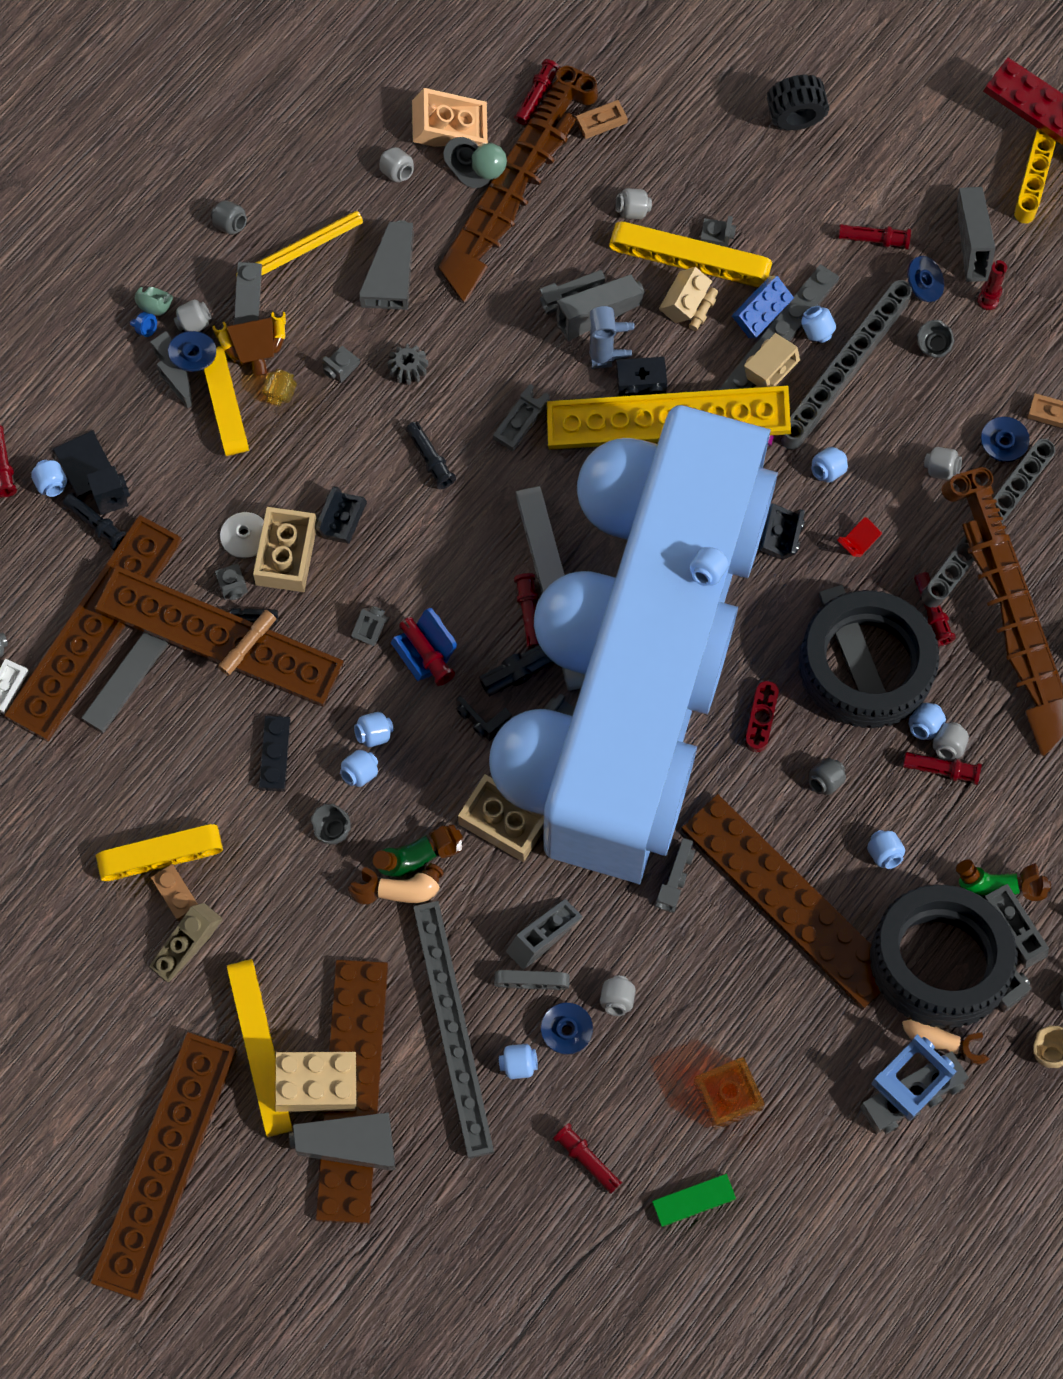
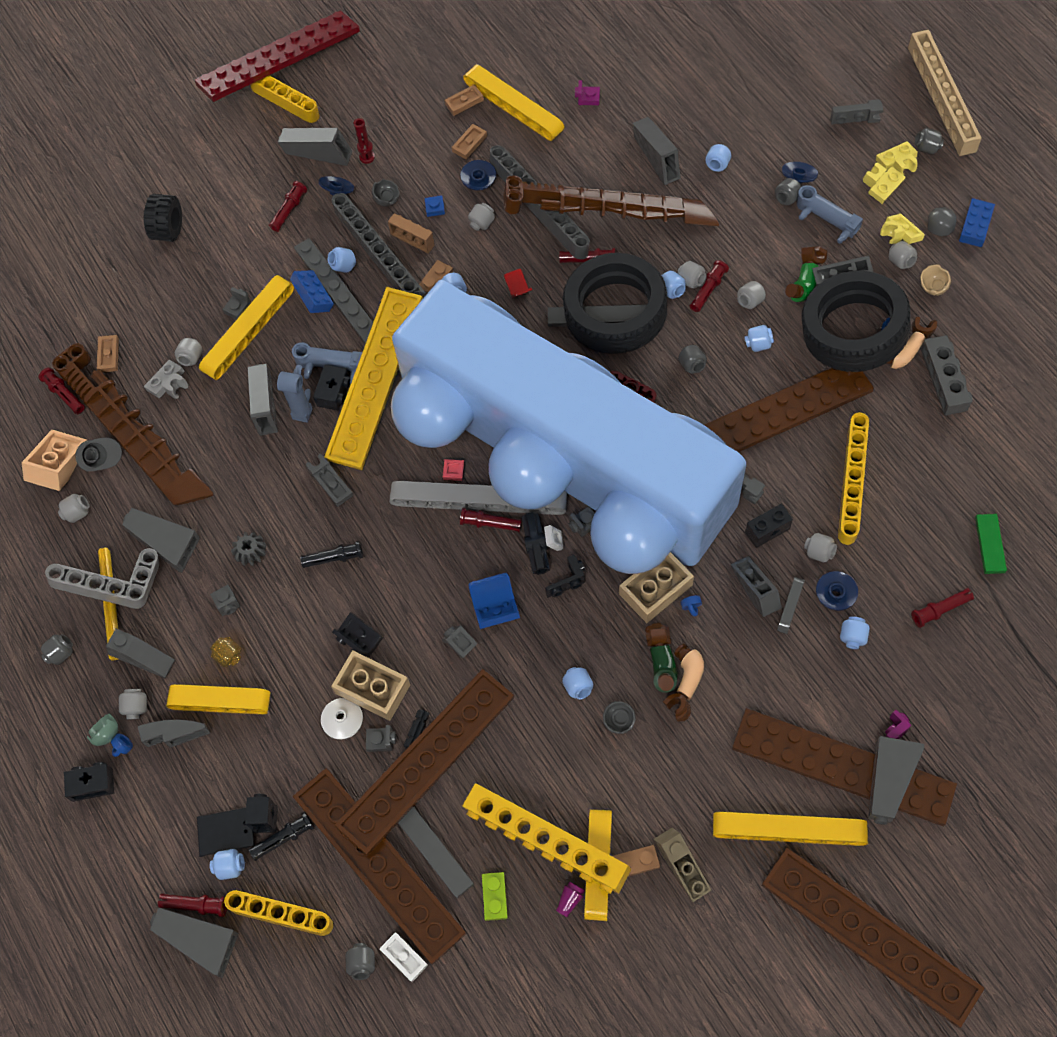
camera: 65 degrees left, 5 degrees down
(16, 557) = (269, 907): none -> yellow beam
(87, 300) = (100, 784): none -> black brick
(95, 757) = (494, 896): none -> lime plate
(115, 834) = (570, 898): none -> magenta cone
(149, 867) = (617, 870): none -> yellow brick
(189, 344) = (161, 703): dark blue dish -> none
(237, 654) = (450, 747): medium nougat piece -> none
(253, 341) = (177, 660): reddish brown torso -> none
(275, 753) = (541, 747): black plate -> none
(312, 236) = (108, 584): none -> light grey beam
(315, 1081) = (838, 787): tan brick -> none
(373, 729) = (548, 662): light blue head -> none
(410, 1139) = (900, 726): none -> magenta bracket
(432, 659) = (509, 599): dark red pin -> none
(453, 1030) = (814, 674): dark grey plate -> none
(489, 161) = (106, 436): sand green hair -> none
(498, 865) = (691, 604): none -> blue tile
(529, 687) = (553, 538): none -> white tile
(553, 293) = (239, 426): dark grey plate -> none
(583, 549) = (453, 470): none -> coral tile
(589, 196) = (167, 380): none -> light grey plate
(626, 927) = (768, 525): none -> black brick
(677, 353) = (319, 357): none -> sand blue piece
(686, 295) = (281, 336): tan brick -> none
(708, 566) = (538, 345): light blue head -> none
(729, 1093) = (918, 492): clear orange brick -> none
(737, 1005) = (852, 486): none -> yellow beam
(771, 362) = (362, 295): tan brick -> none
(844, 440) = (436, 273): none -> medium nougat plate
(888, 390) = (411, 233): none -> medium nougat piece
(897, 1093) = (946, 382): medium blue window -> none
(942, 404) = (434, 206): none -> blue plate
(947, 822) = (751, 295): none -> light grey head

